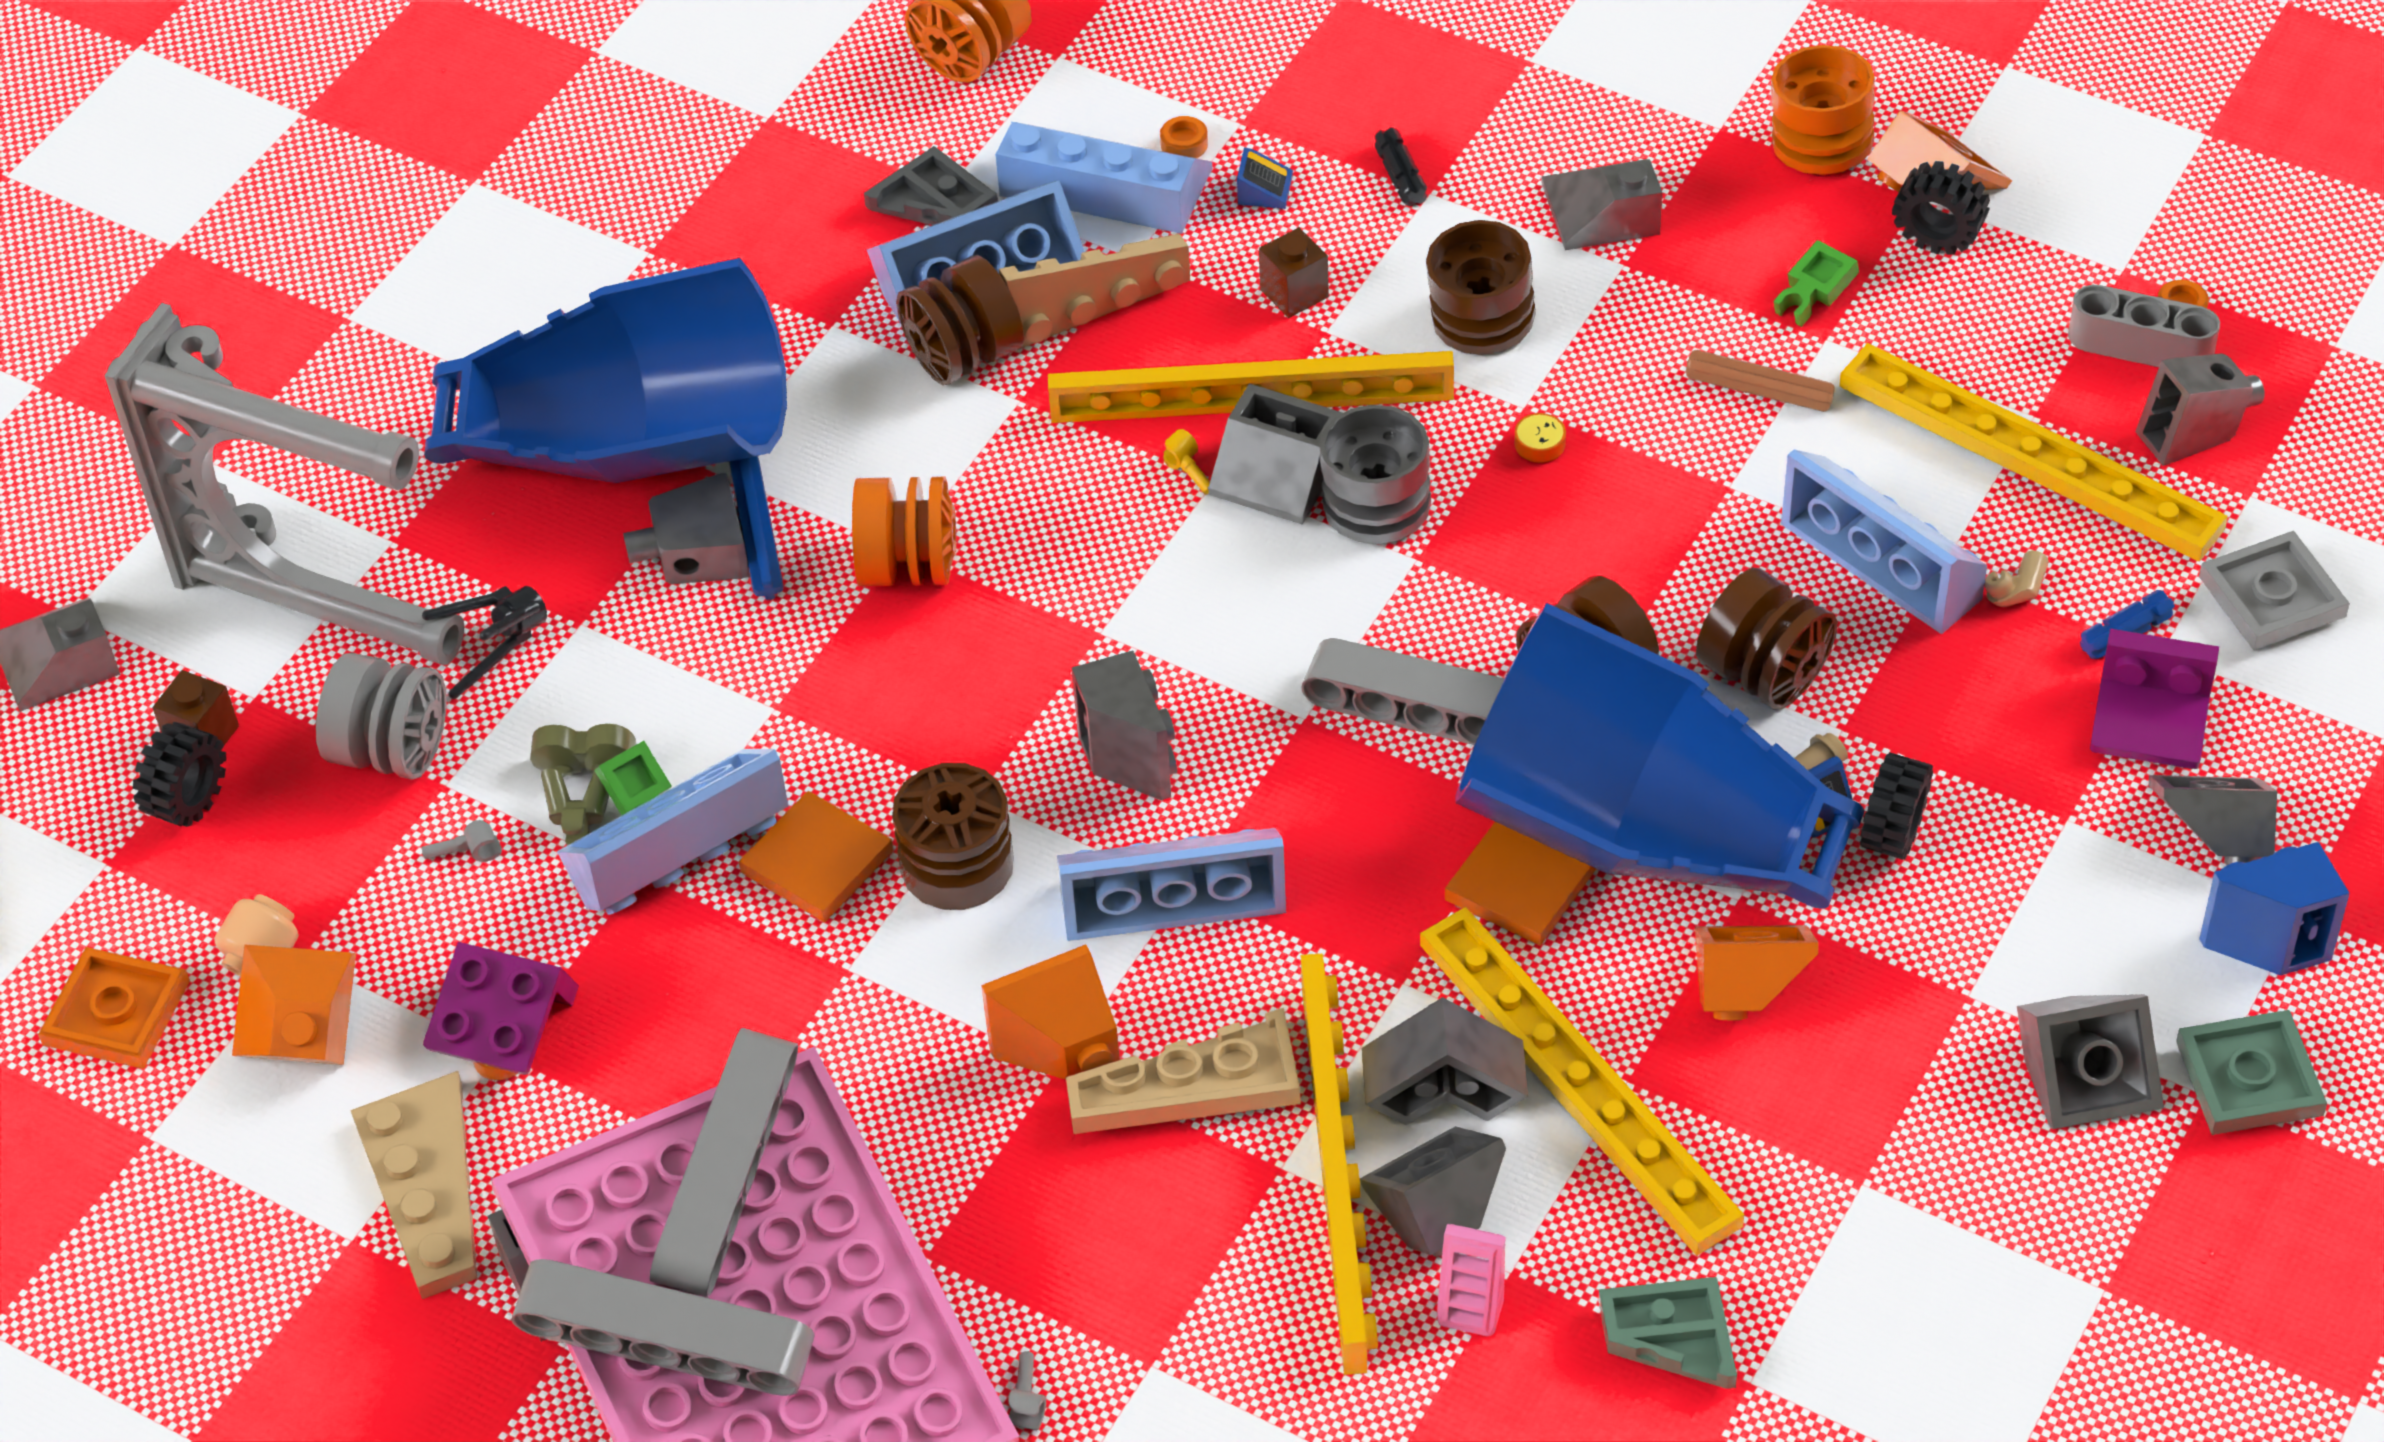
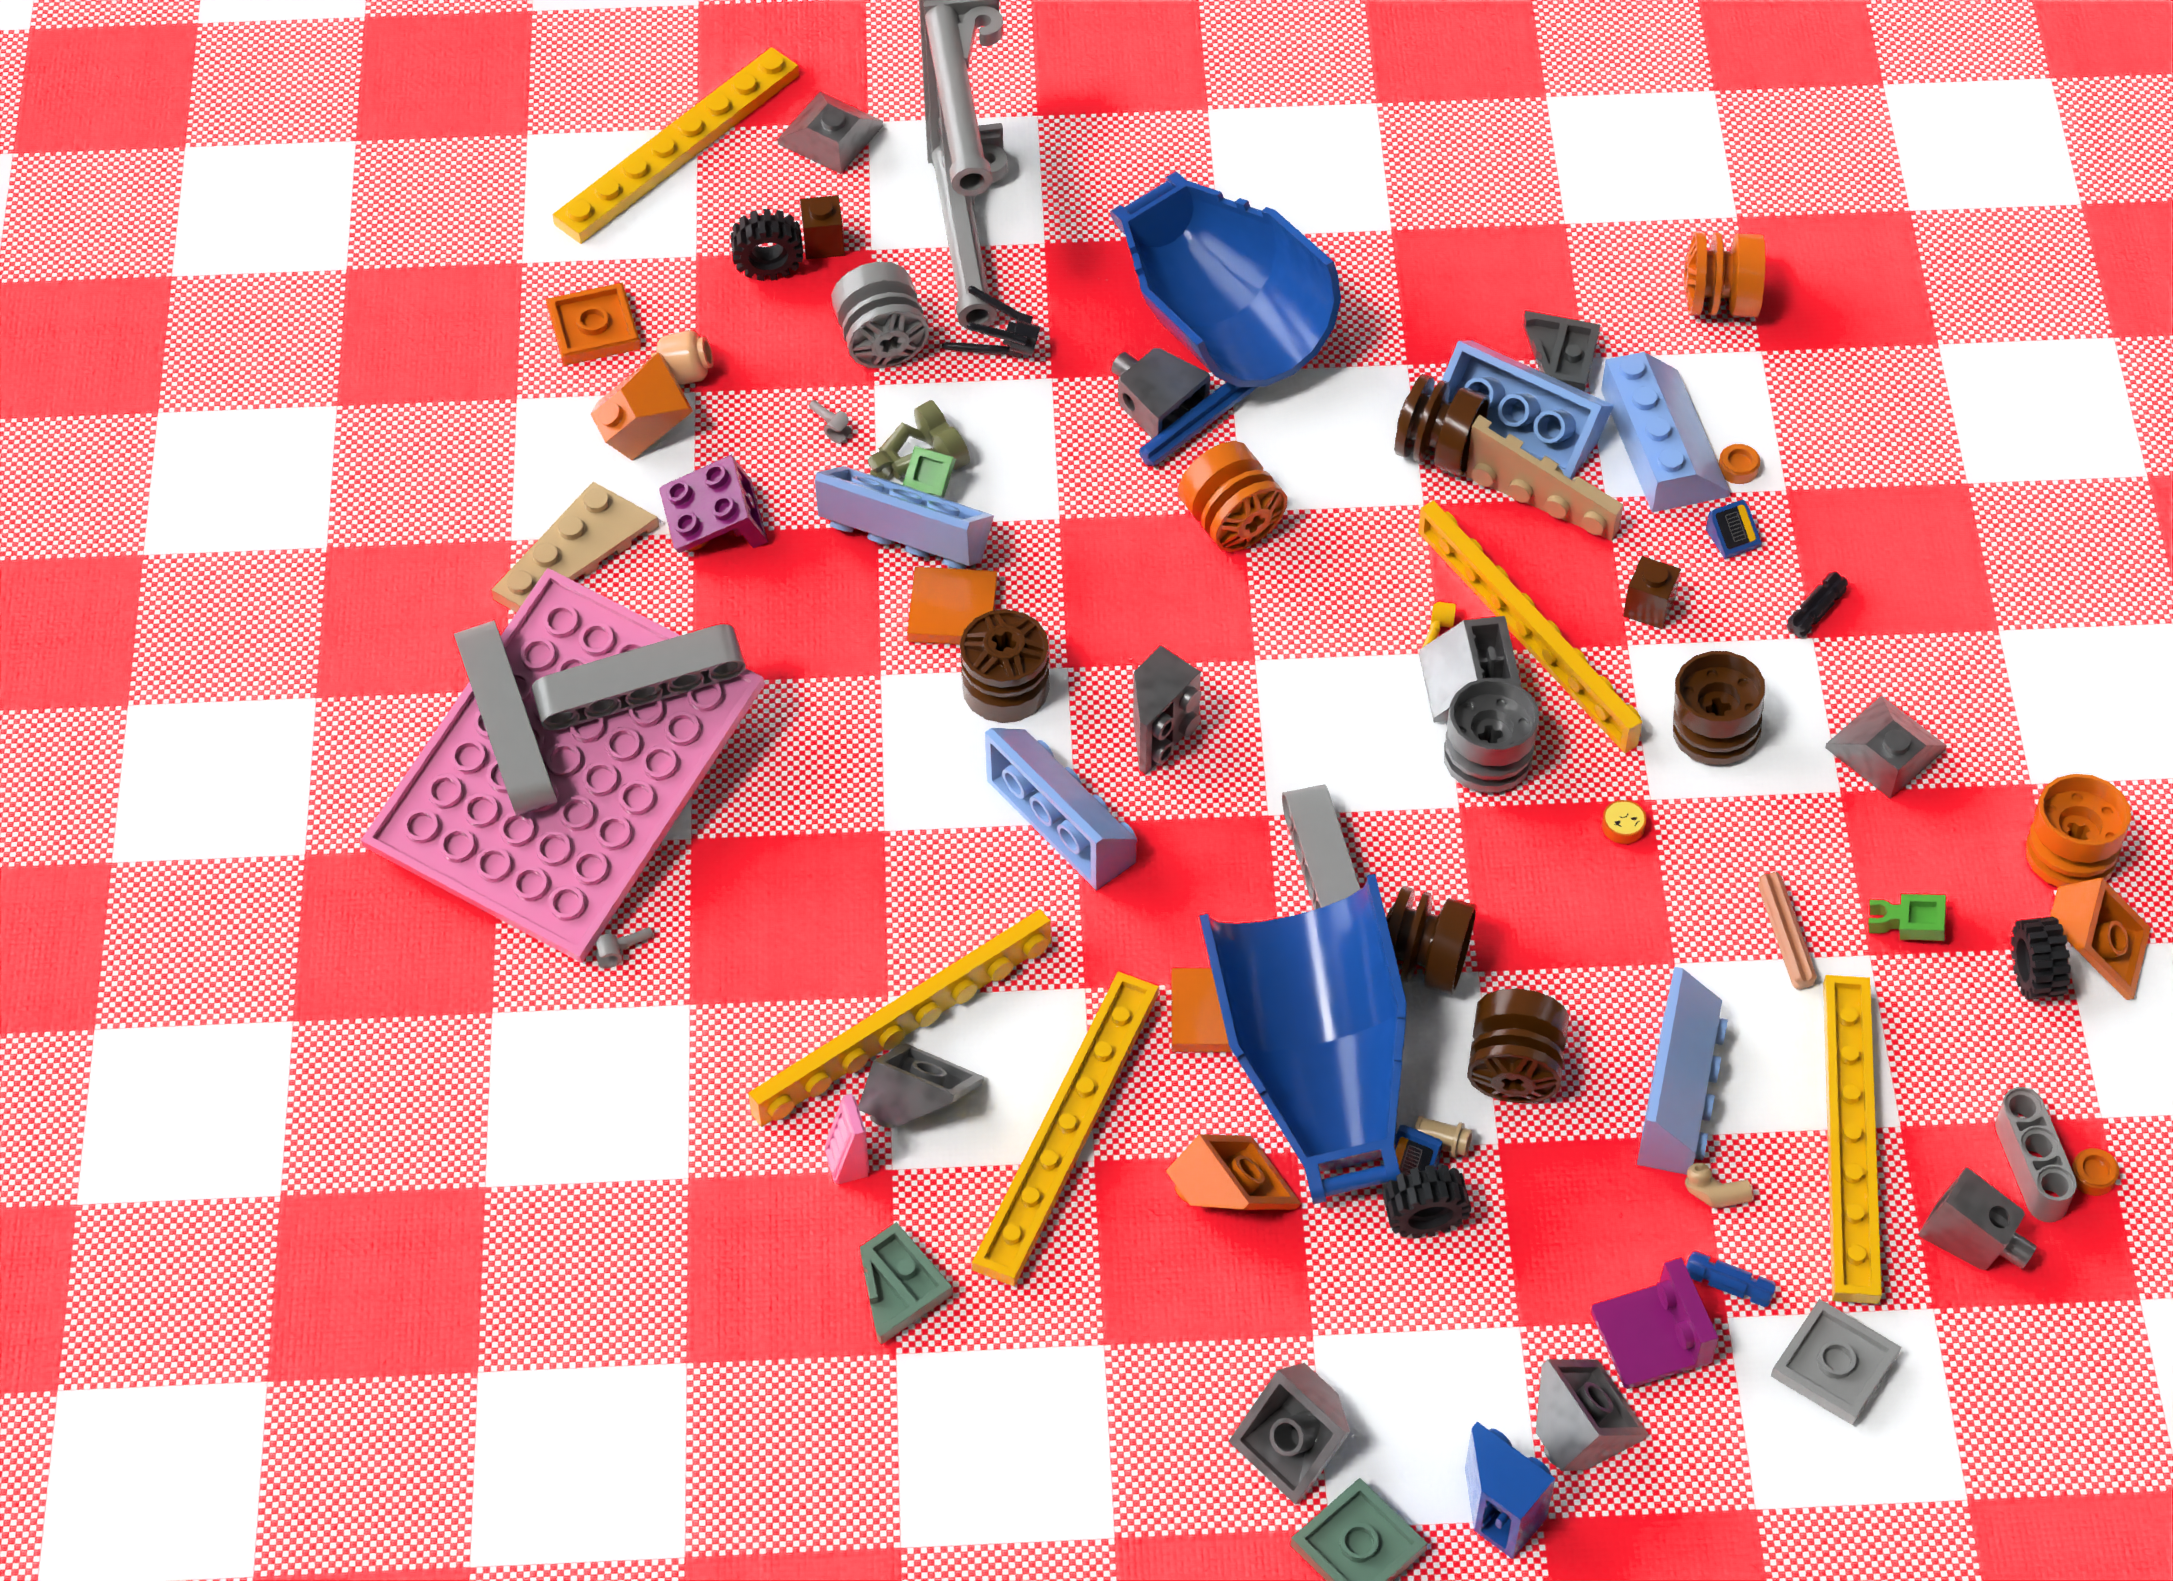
camera: 55 degrees right, 5 degrees up
(1052, 1016) = (901, 800): orange slope -> none
(1214, 1077) = (913, 906): tan wing -> none
(1443, 1058) = (1013, 1038): flat silver brick -> none

